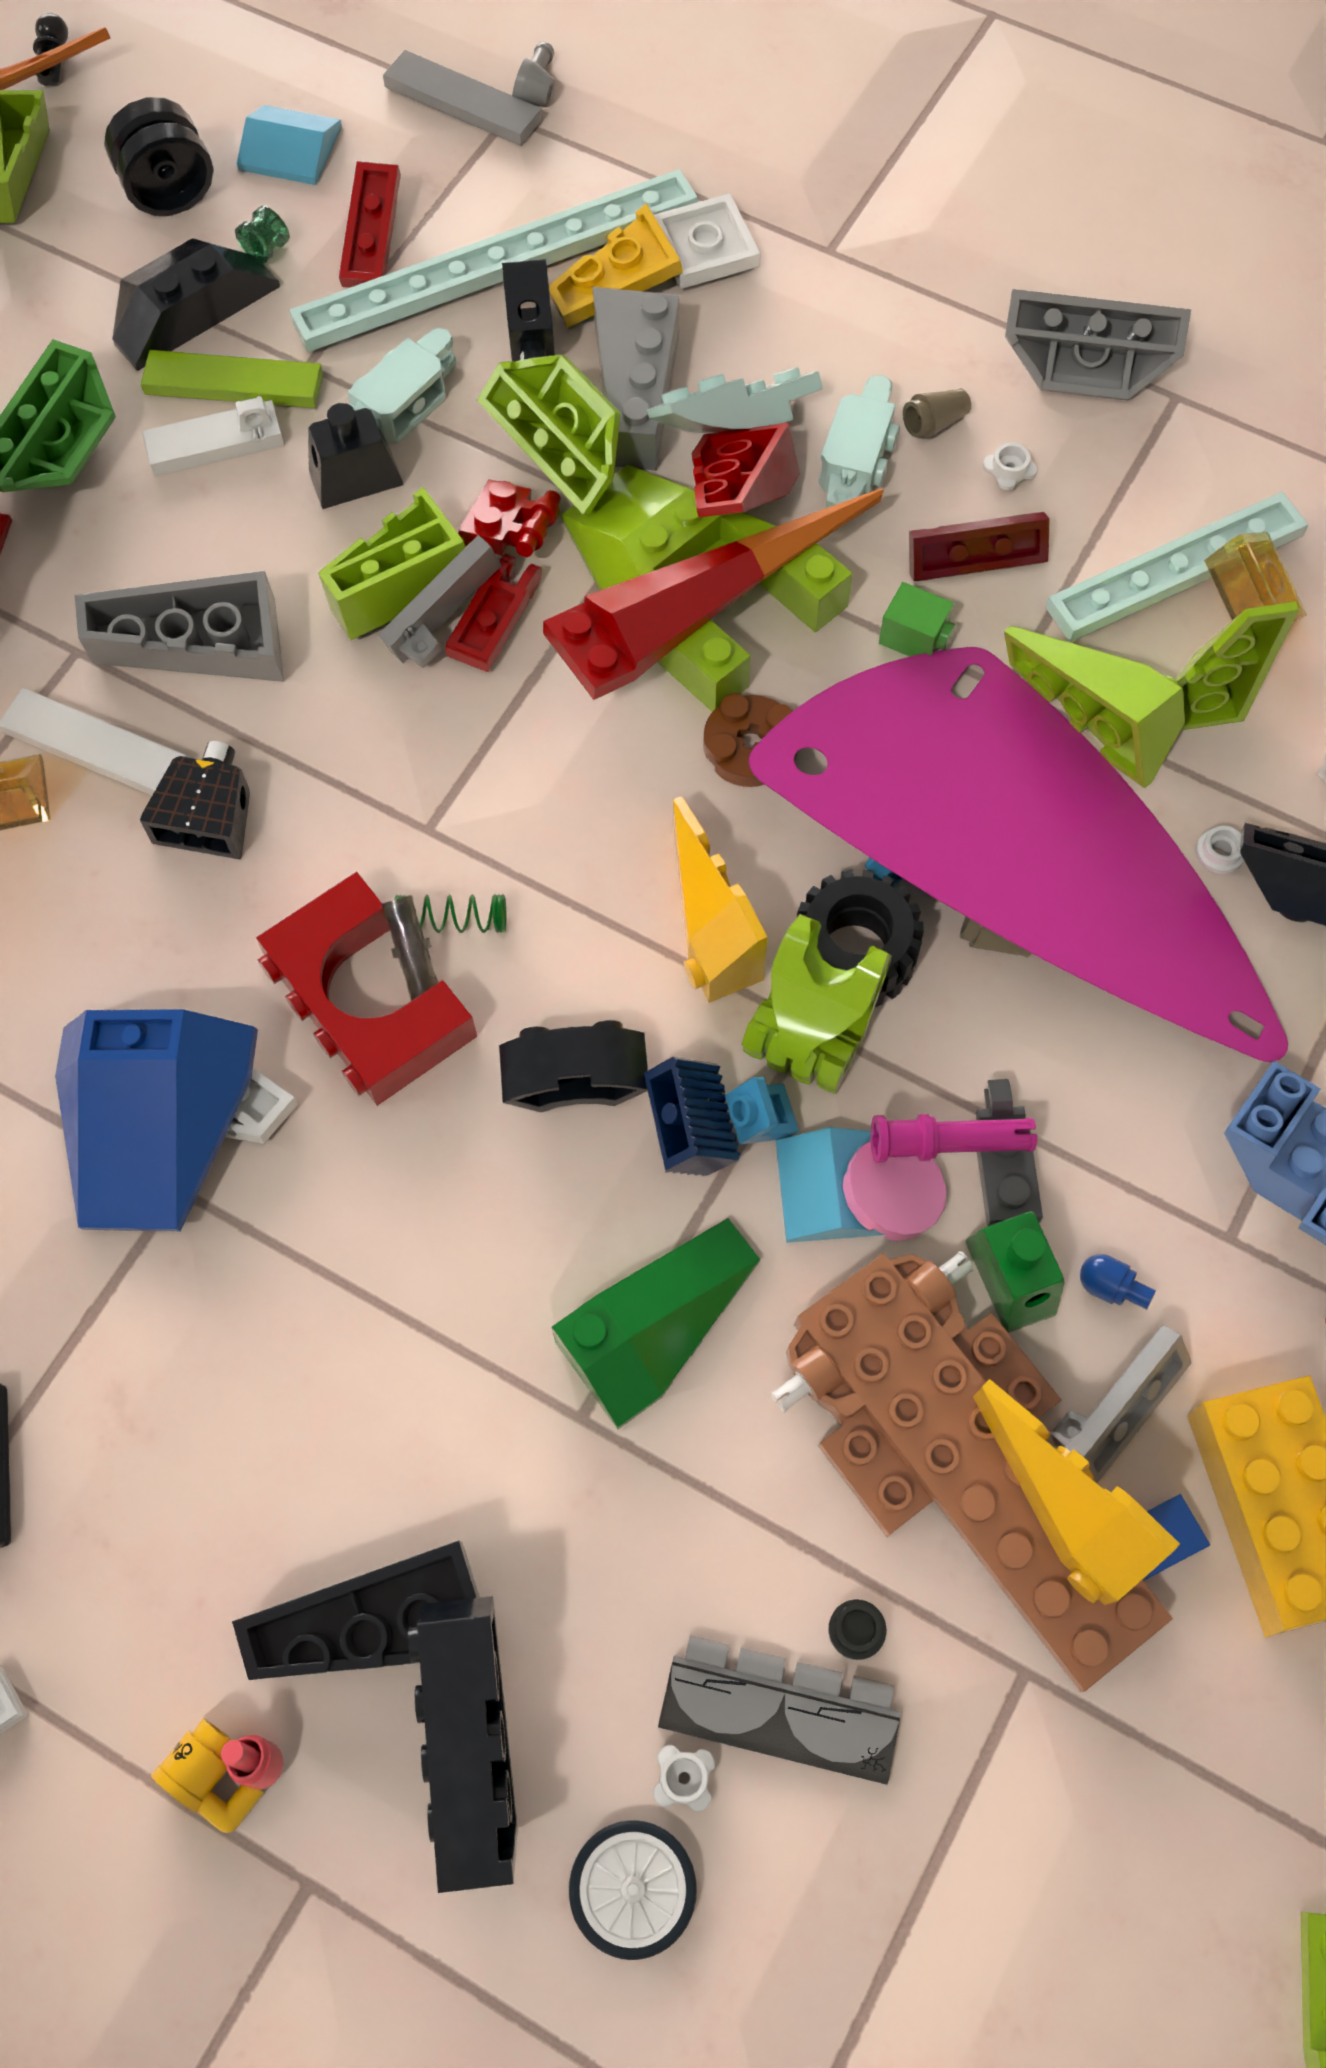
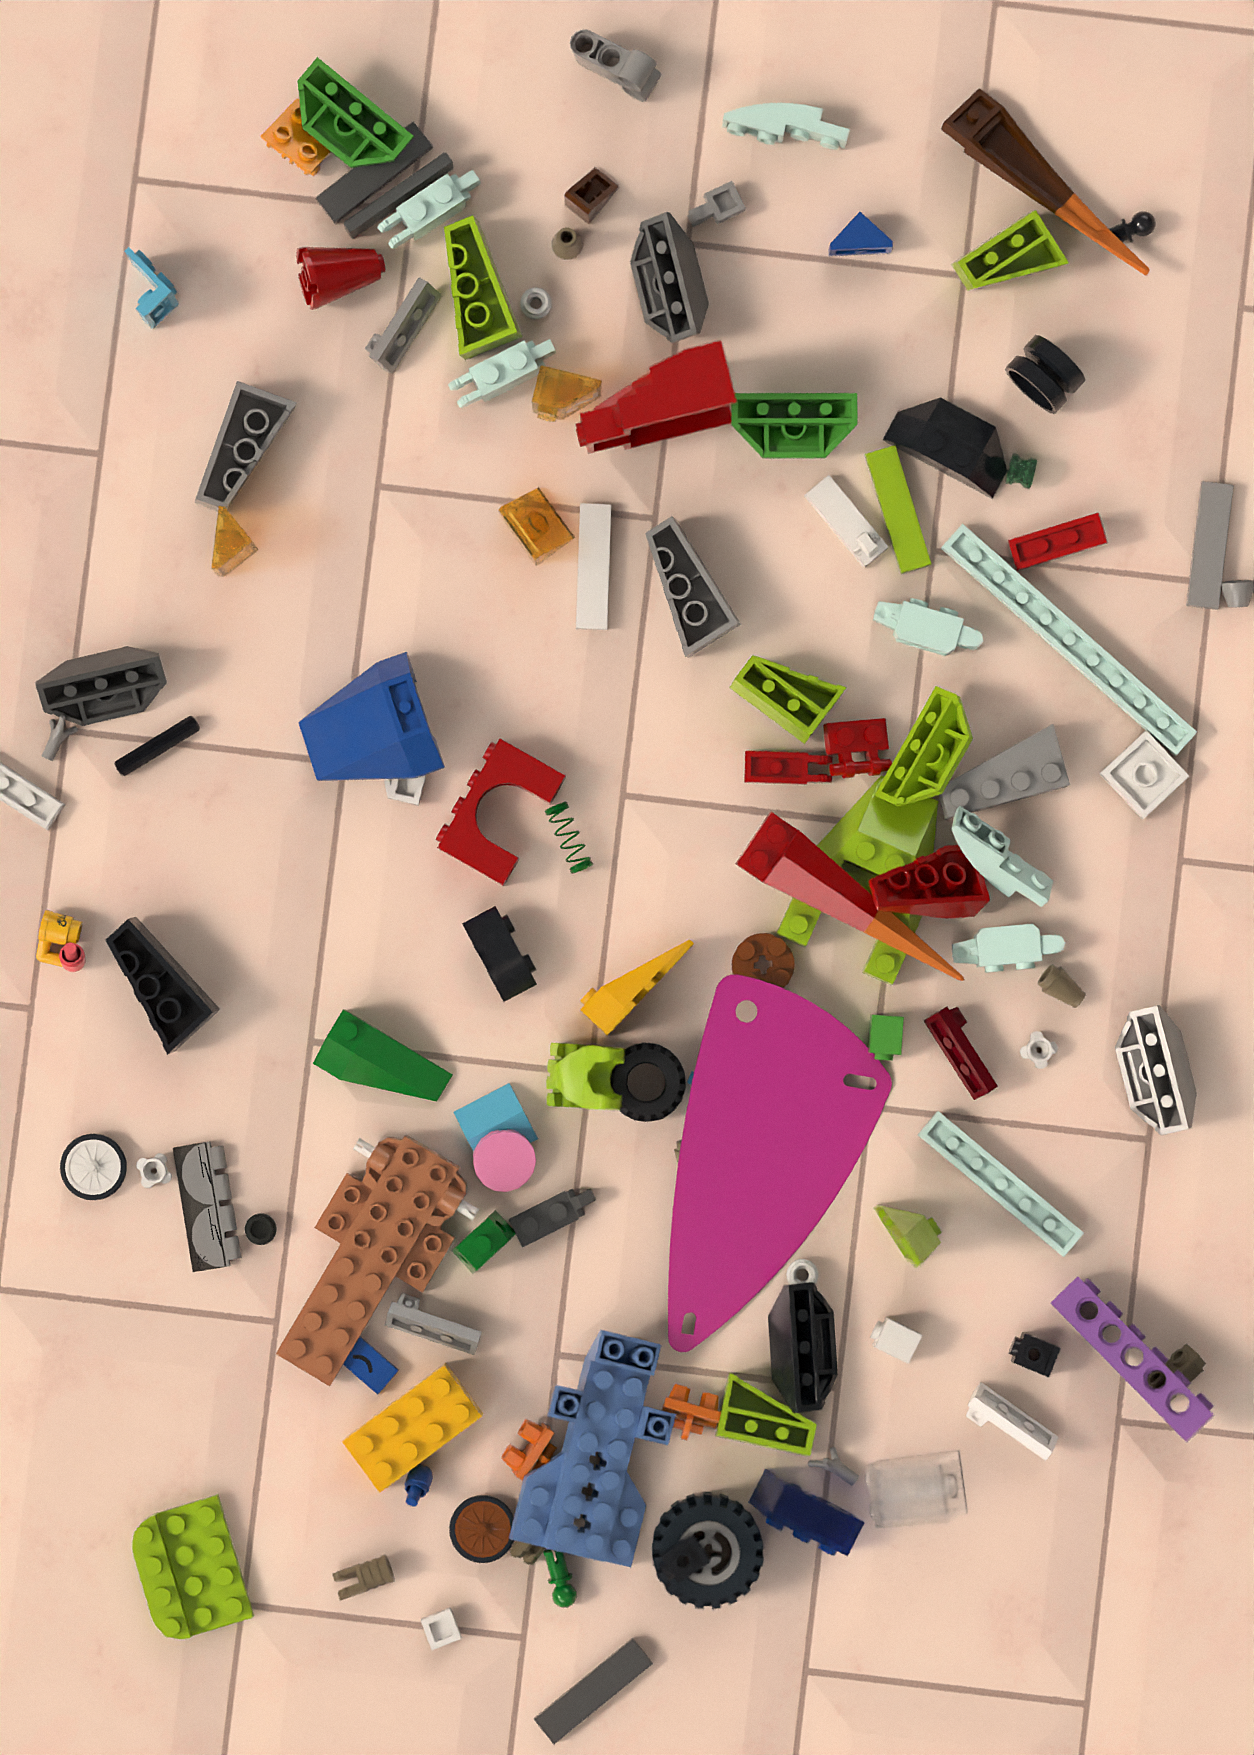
camera: 65 degrees right, 20 degrees up
(200, 804) = (578, 657): black torso -> none
(287, 143) = (1117, 442): medium azure slope -> none
(349, 456) = (858, 626): black torso -> none
(410, 945) = (533, 828): clear smoke pin -> none
(412, 629) = (743, 729): light grey hinge -> none
(466, 1744) = (120, 1059): black wedge -> none
(528, 327) = (1026, 684): black torso -> none
(629, 261) = (1090, 729): yellow wing -> none
(691, 1116) = (497, 1032): dark blue brick -> none
(761, 1111) = (517, 1069): dark azure bracket -> none
(927, 1137) = (533, 1167): dark pink pin -> none
(1095, 1532) = (348, 1329): yellow wedge -> none
(1114, 1281) = (502, 1298): blue cylinder -> none
(1115, 698) = (866, 1180): lime wedge -> none
(1251, 574) = (1000, 1240): clear yellow slope -> none

